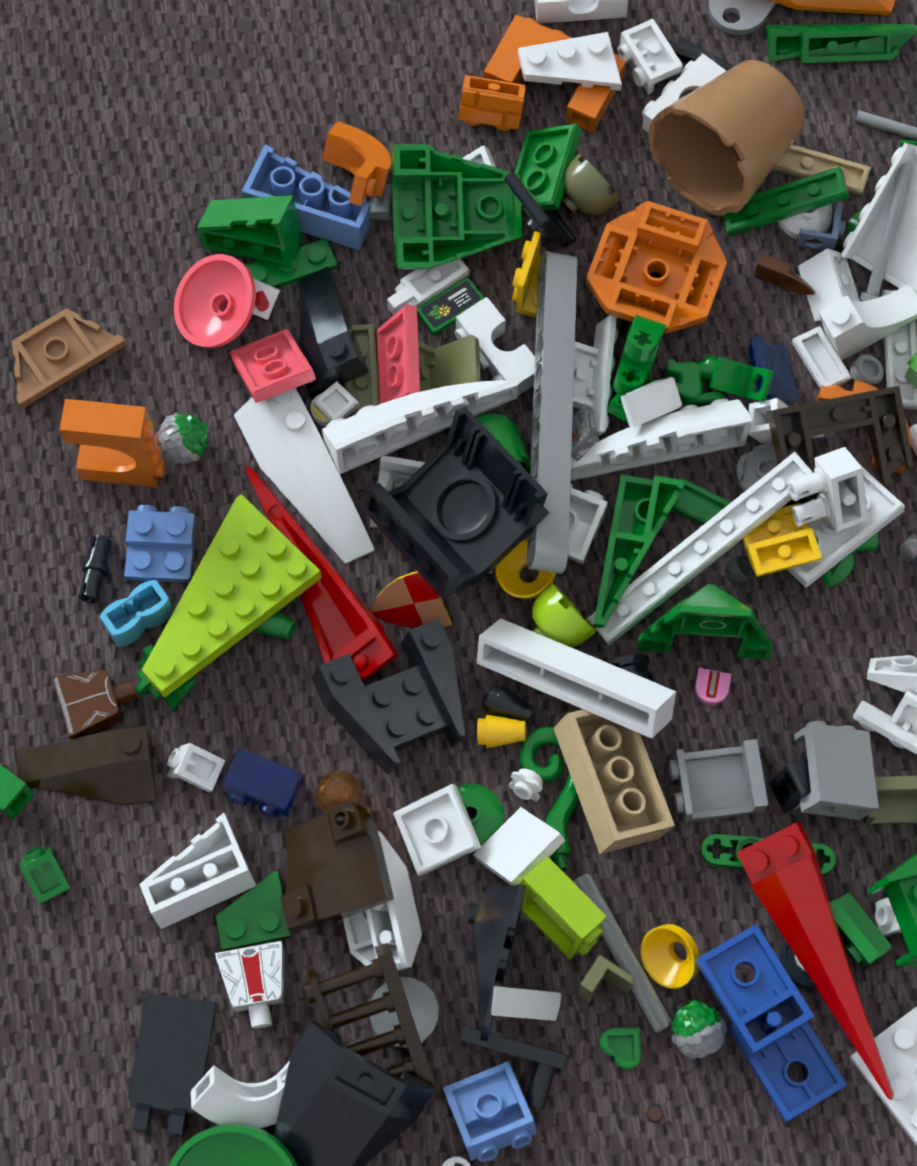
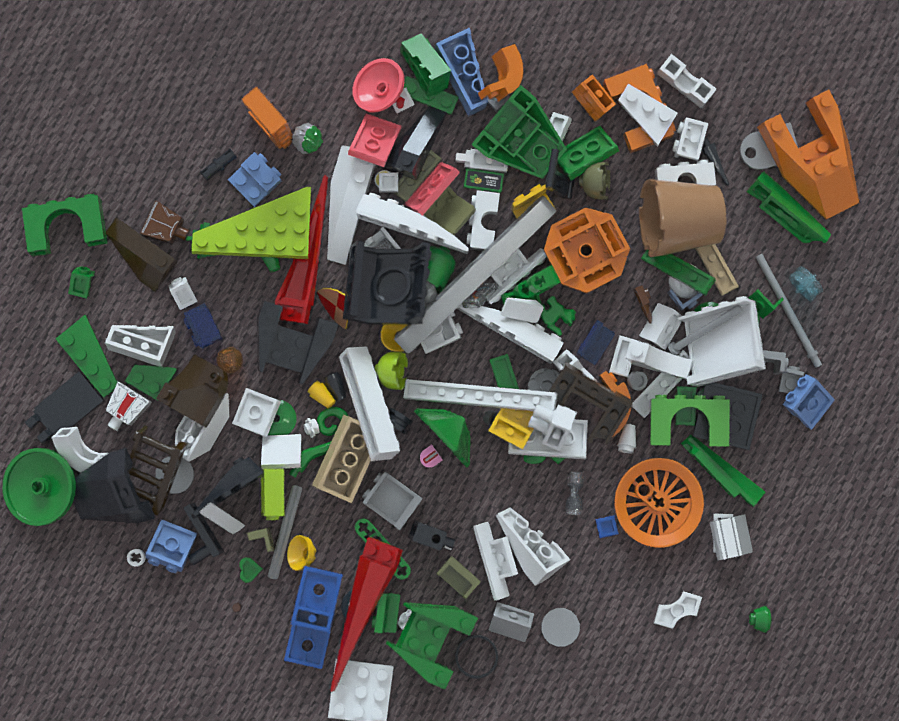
camera: 40 degrees right, 15 degrees up
(57, 353) = (290, 46): medium nougat wing -> none
(130, 617) = (210, 203): medium azure brick -> none
(133, 960) = (86, 352): none -> green wing
(637, 518) = (467, 356): green wedge -> none
(698, 1030) = (283, 592): piece -> none
(740, 379) = (573, 334): green bracket -> none
(838, 771) = (441, 543): light grey panel -> none

